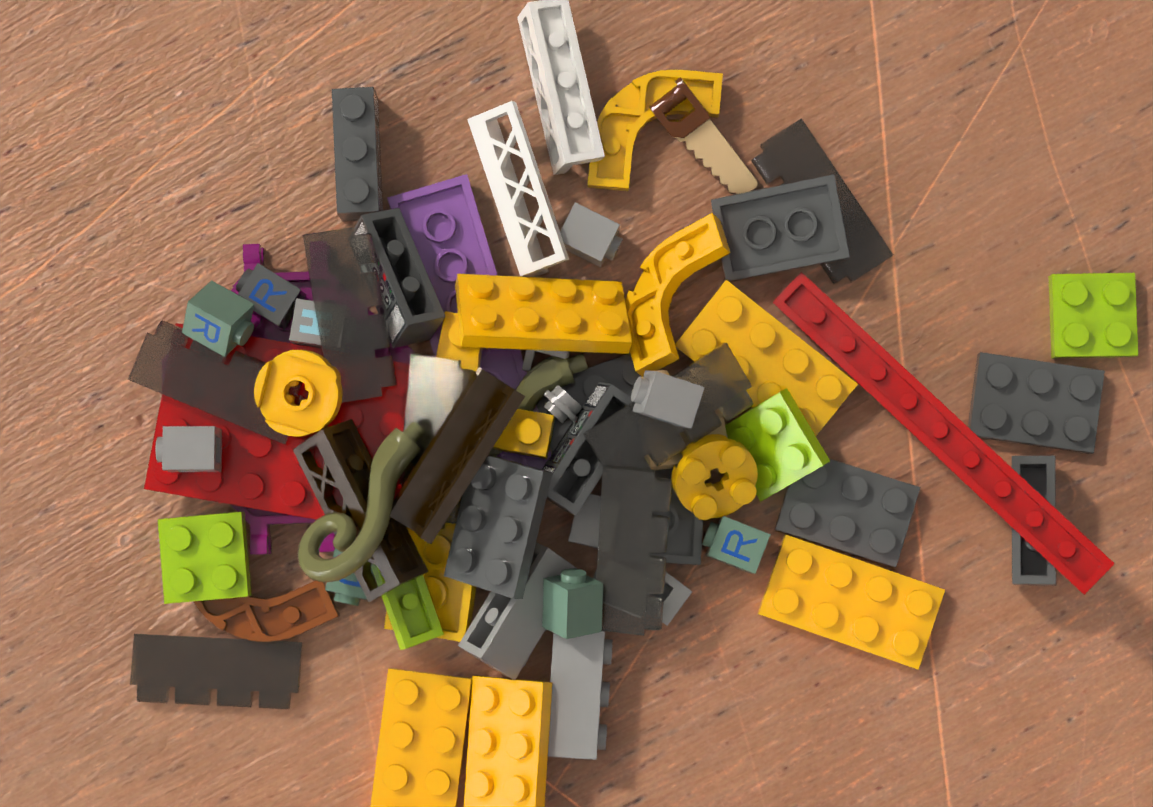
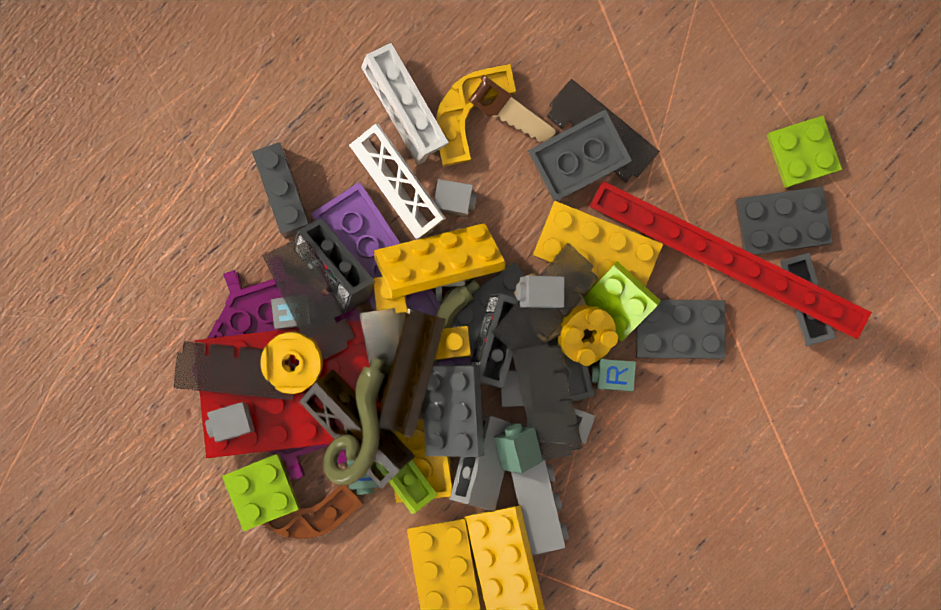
camera: 20 degrees left, 0 degrees up
(218, 318) = (222, 328): sand green brick -> none
(222, 664) = (296, 559): clear smoke windscreen -> none
(270, 293) = (251, 302): dark grey brick -> none
(562, 404) = (470, 317): light grey plate -> none
(661, 276) = (510, 212): yellow plate -> none
(851, 601) = (702, 390): yellow plate -> none

